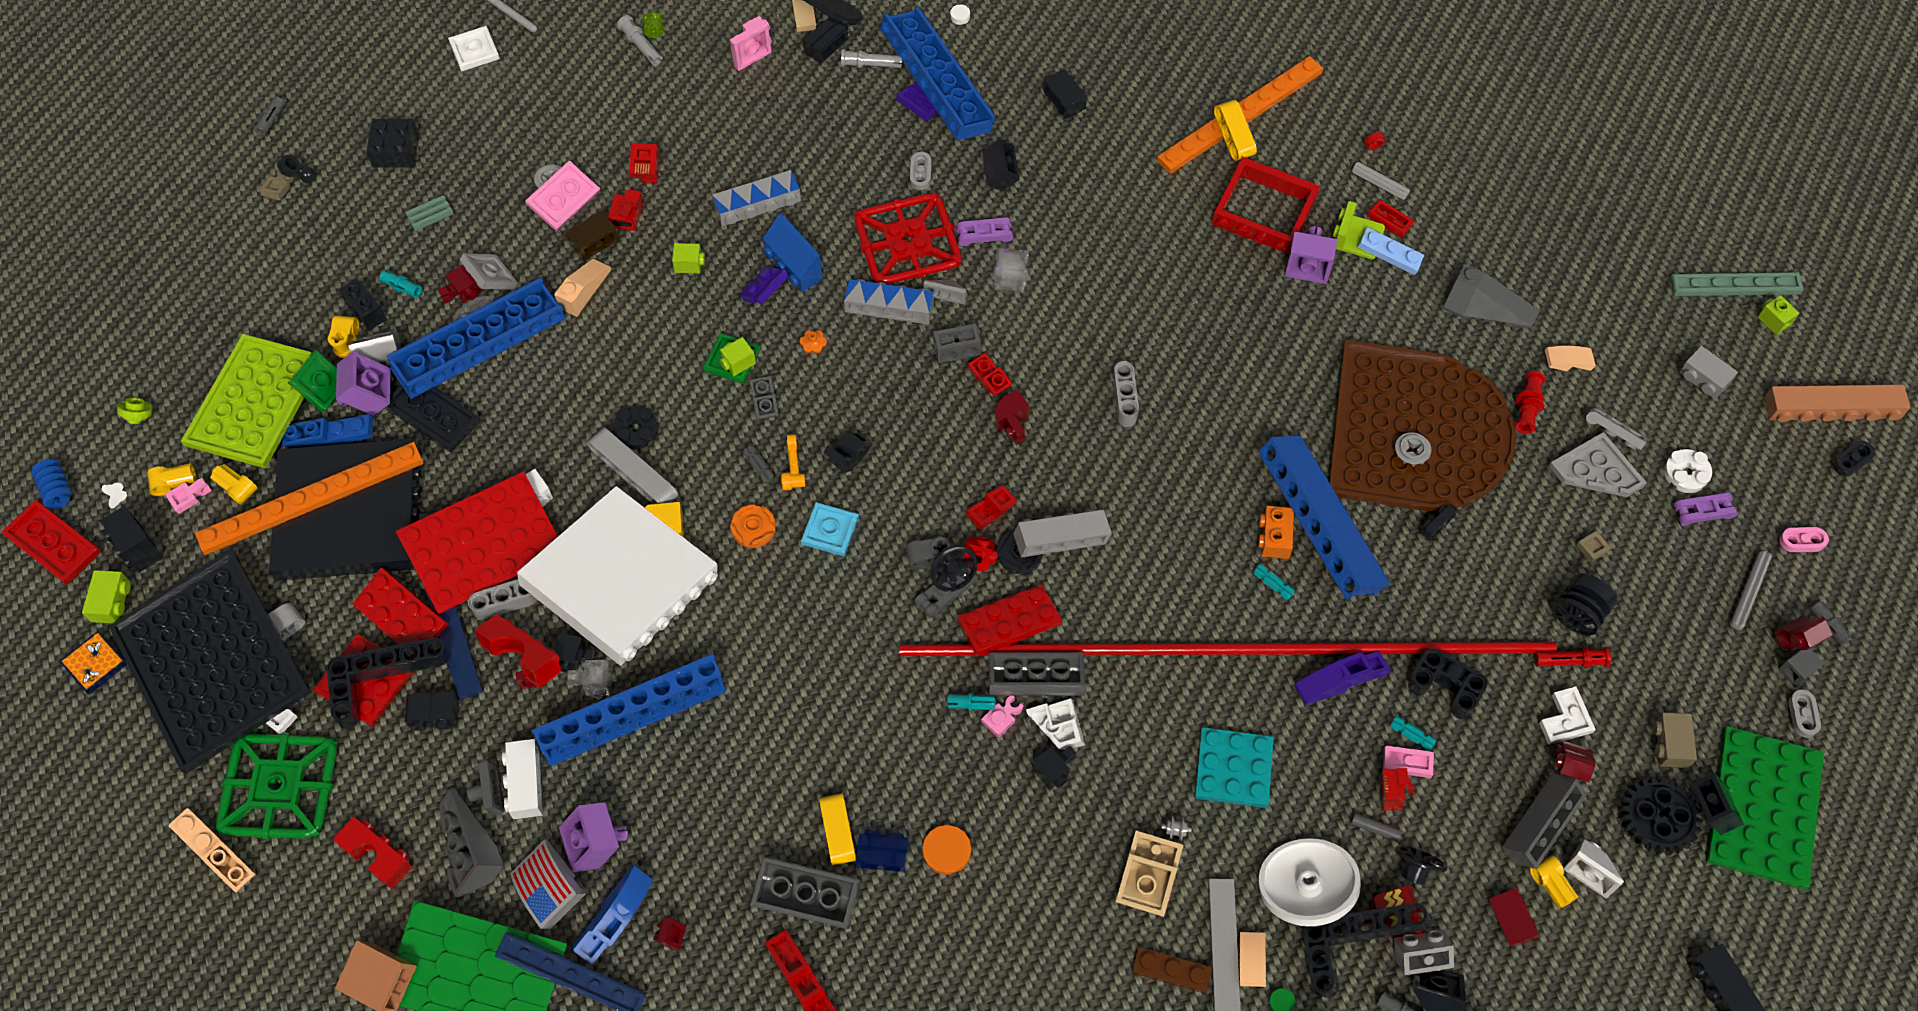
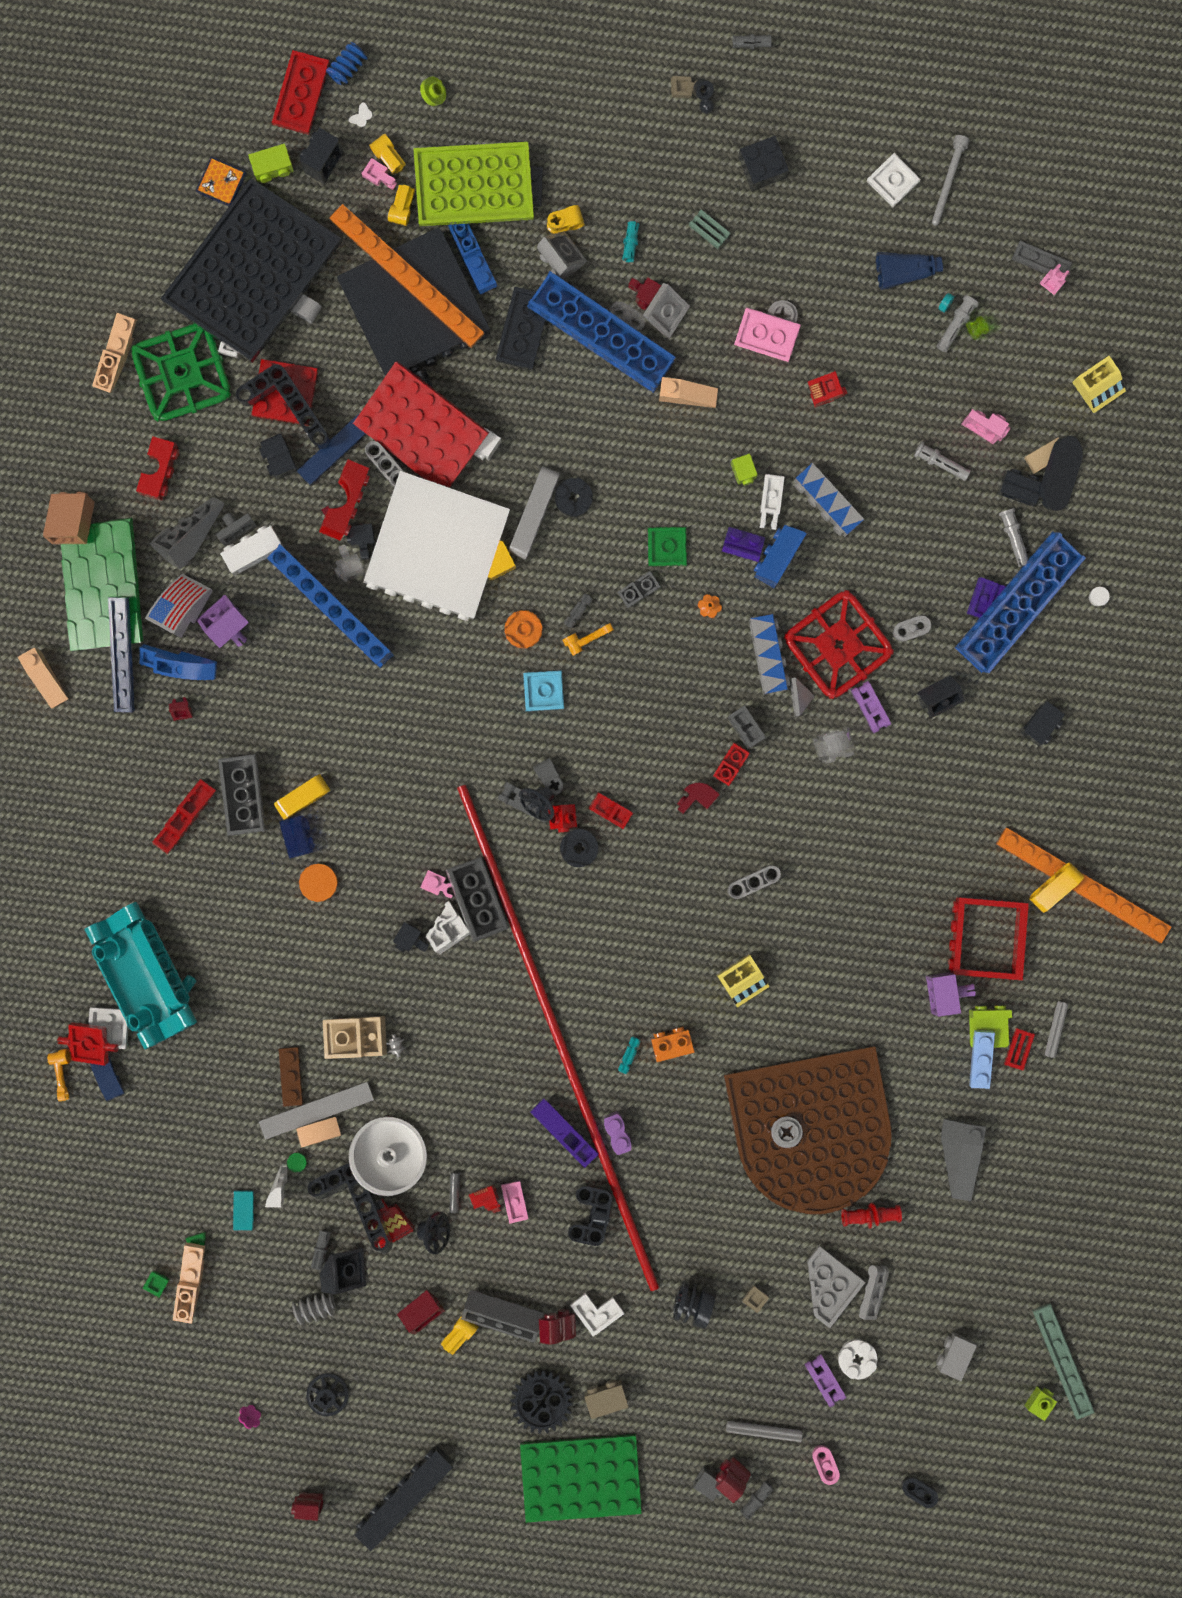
camera: 65 degrees right, 25 degrees up
(316, 381) = (510, 226): green tile -> none
(362, 304) = (597, 221): black brick -> none
(363, 383) = (520, 264): medium lavender brick -> none
(398, 610) = (345, 392): red plate -> none
(562, 65) = (903, 268): none -> dark blue piece
(592, 236) = (735, 379): dark brown brick -> none
(615, 41) = (946, 302): none -> teal tile
(626, 210) = (773, 394): red piece -> none
(731, 248) = (771, 499): none -> white hinge
(737, 356) = (663, 552): lime brick -> none
(759, 99) = (931, 457): none -> light grey pin
(848, 452) = (613, 678): black brick -> none
(971, 701) = (438, 857): teal axle -> none
(1009, 620) = (516, 861): red plate -> none
(1062, 533) = (603, 876): light grey brick -> none
(1228, 438) = (743, 980): none -> light yellow slope
(1234, 767) = (462, 1072): teal plate -> none
(1324, 514) = (698, 1079): blue tile -> none
(1365, 621) = (619, 1137): none -> medium lavender brick
(1374, 141) = (1095, 1012): red tile -> none
(1413, 733) = (540, 1198): teal axle -> none
(1424, 952) = (365, 1257): light grey brick -> none
(1444, 517) = (723, 1167): black plate -> none
(1570, 356) = (929, 1237): light nougat slope -> none
(1585, 658) = (653, 1314): red pin -> none
(1594, 869) = (480, 1360): white slope -> none
(1717, 804) = (560, 1442): black brick -> none
(1804, 715) = (669, 1494): light grey plate -> none
(1836, 402) = (969, 1468): nougat brick -> none

